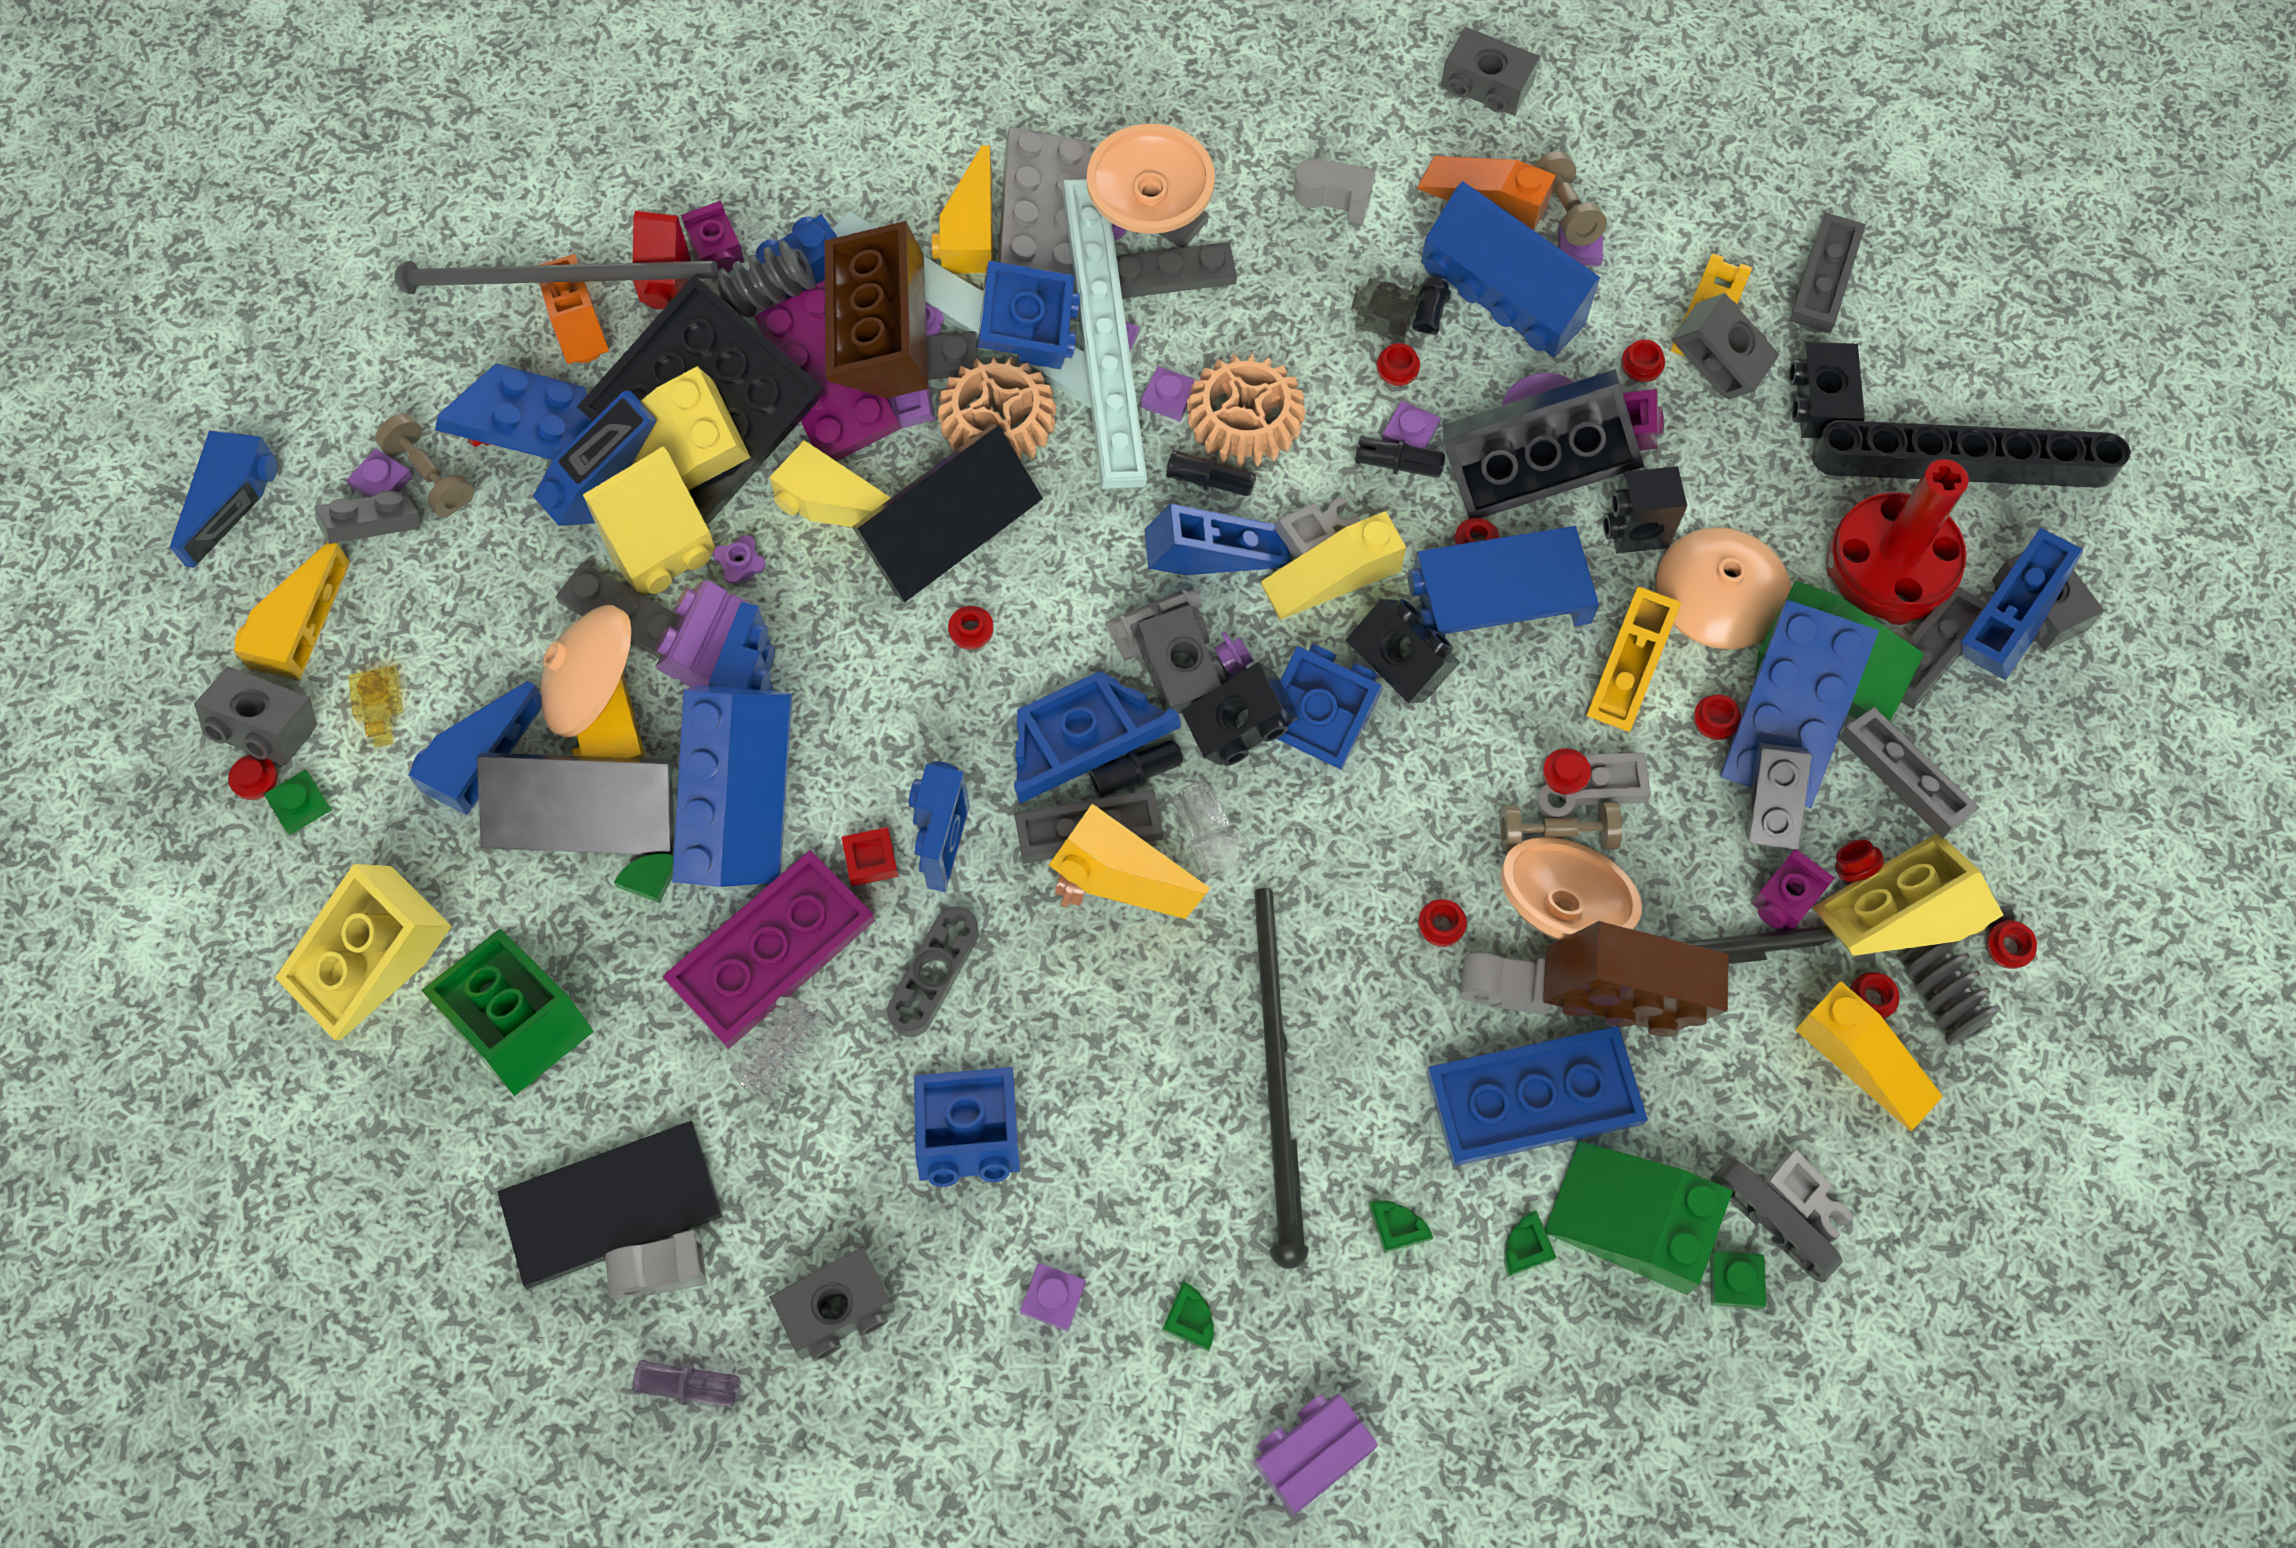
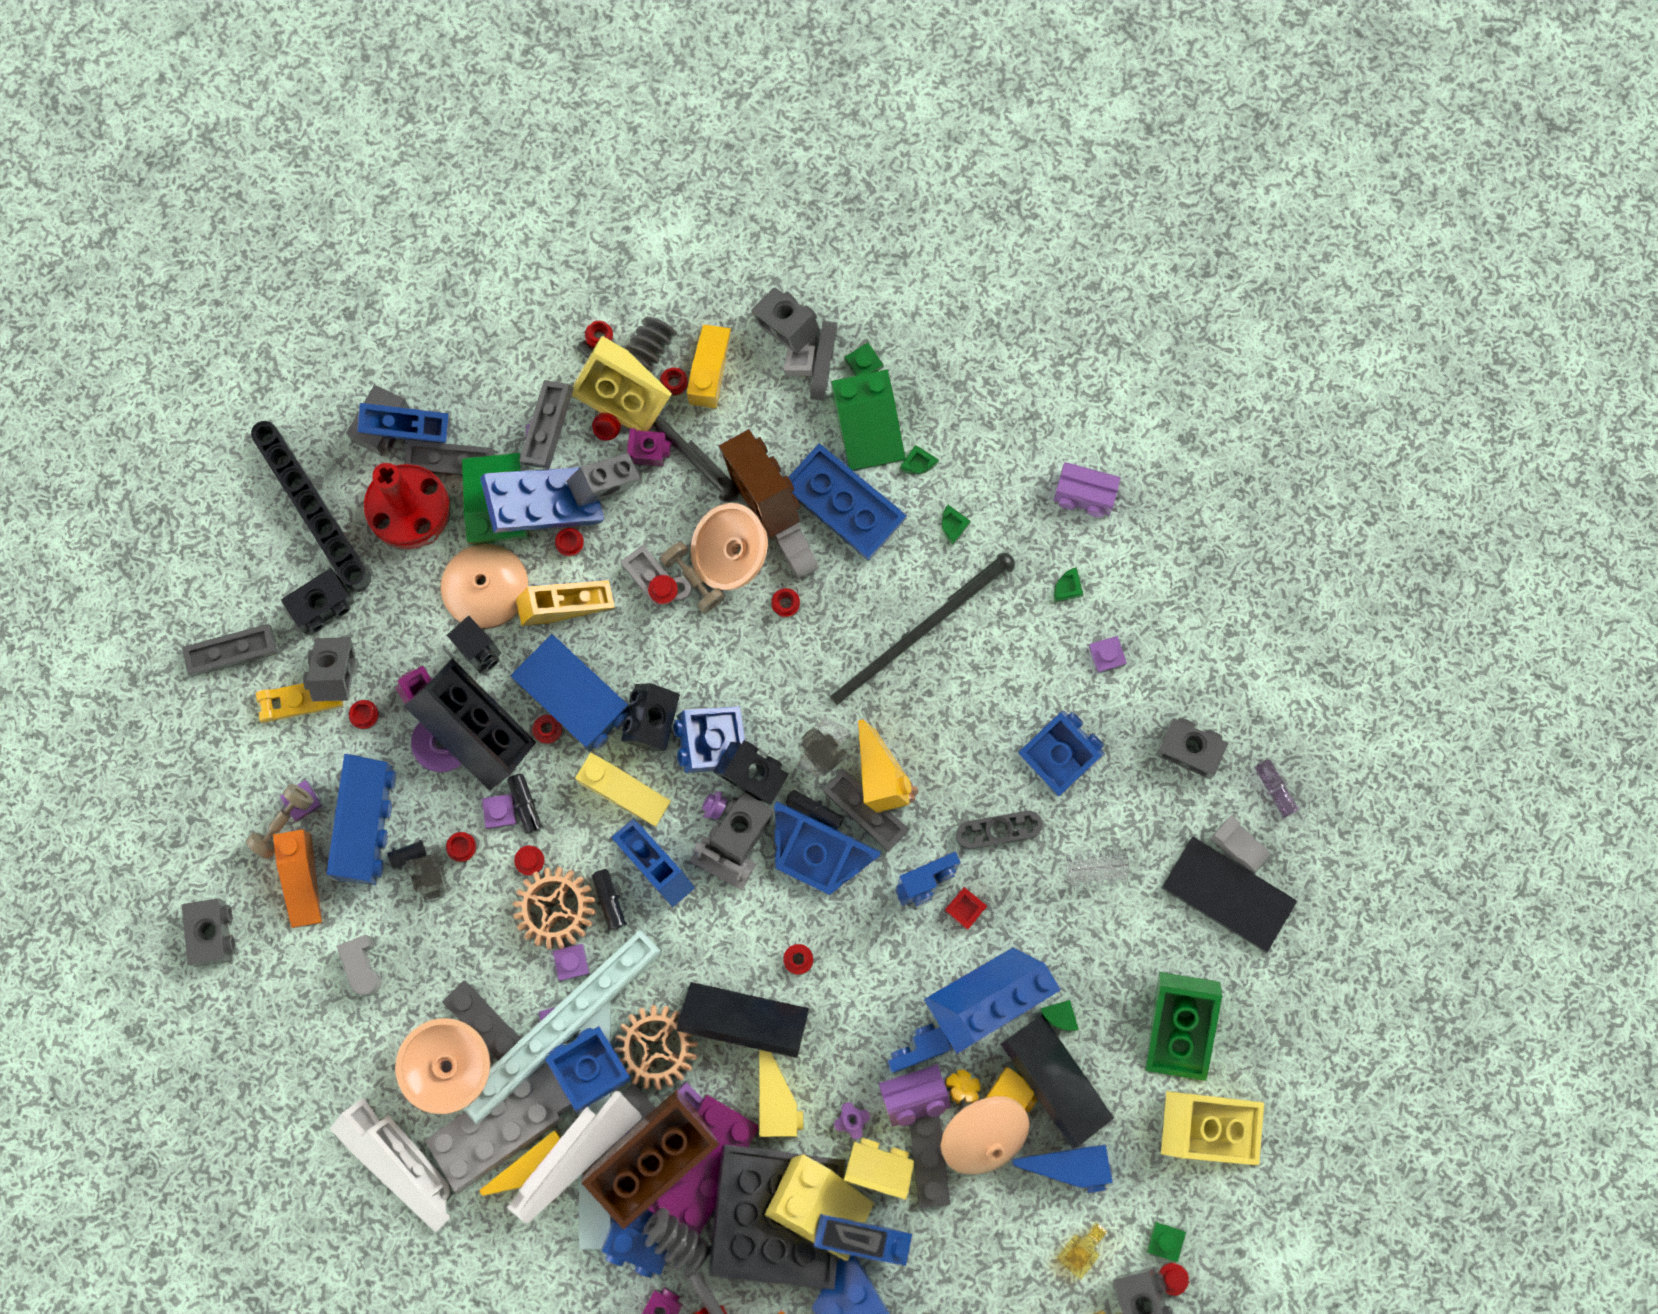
camera: 125 degrees left, 10 degrees up
(664, 702) = (963, 1087): none -> yellow plant
(769, 949) = (1051, 920): magenta plate -> none
(948, 251) = (573, 1154): none -> white wedge
(1093, 105) = (394, 1161): none -> white wedge
(1200, 804) = (822, 750): none -> clear smoke brick
(1310, 526) = (605, 819): light grey plate -> none
(1325, 422) = (529, 860): none -> red plate
(1876, 1204) = (786, 319): none -> dark grey brick

